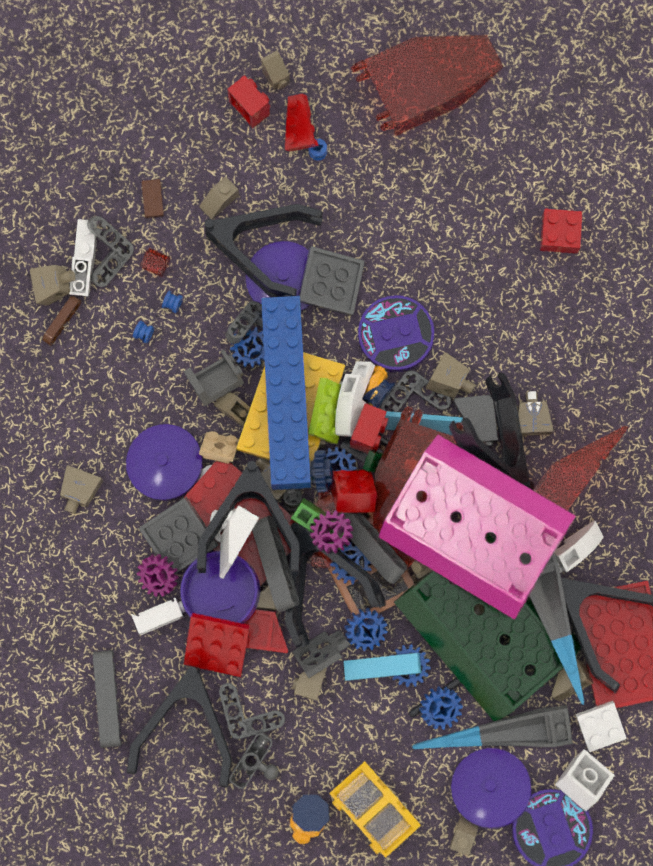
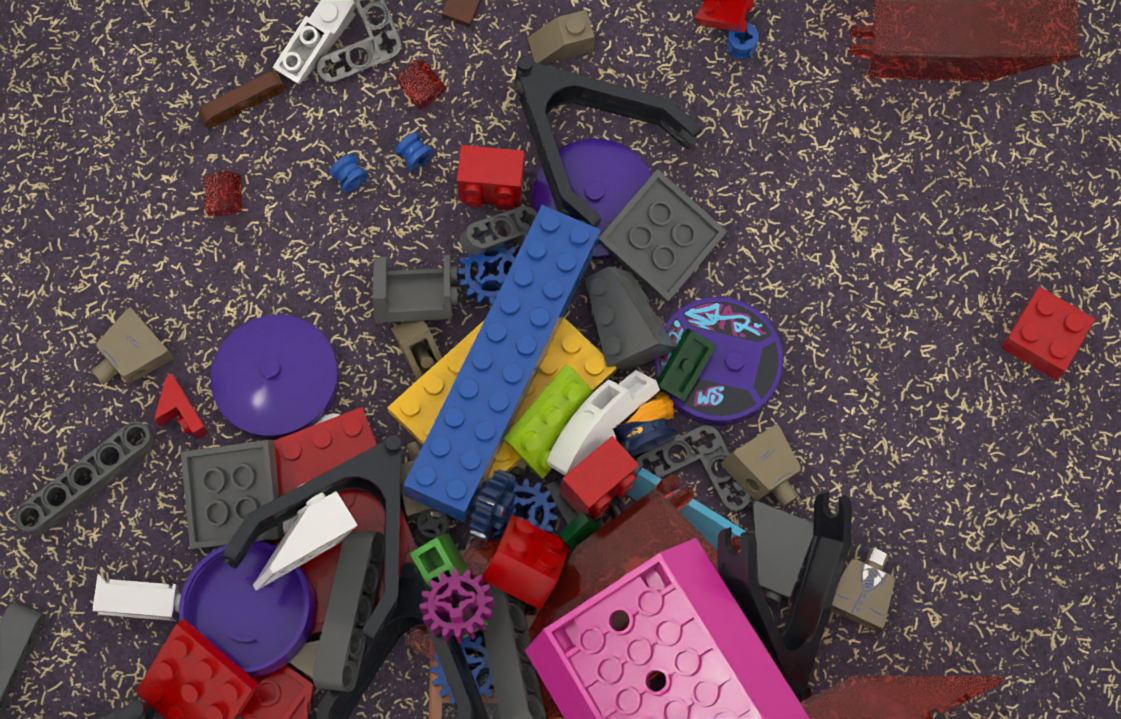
camera: 25 degrees right, 5 degrees down
(51, 283) = (254, 39): dark tan torso -> none
(80, 377) = (223, 193): none -> clear red piece
(94, 558) = (69, 480): none -> dark grey beam
(119, 503) = (175, 402): none -> red slope
(157, 575) = (170, 537): magenta gear -> none
(219, 447) = (363, 394): tan piece -> none
(223, 295) = (491, 177): none -> red brick
(336, 336) = (625, 320): none -> dark grey wedge
(381, 345) = (685, 364): none -> dark green plate

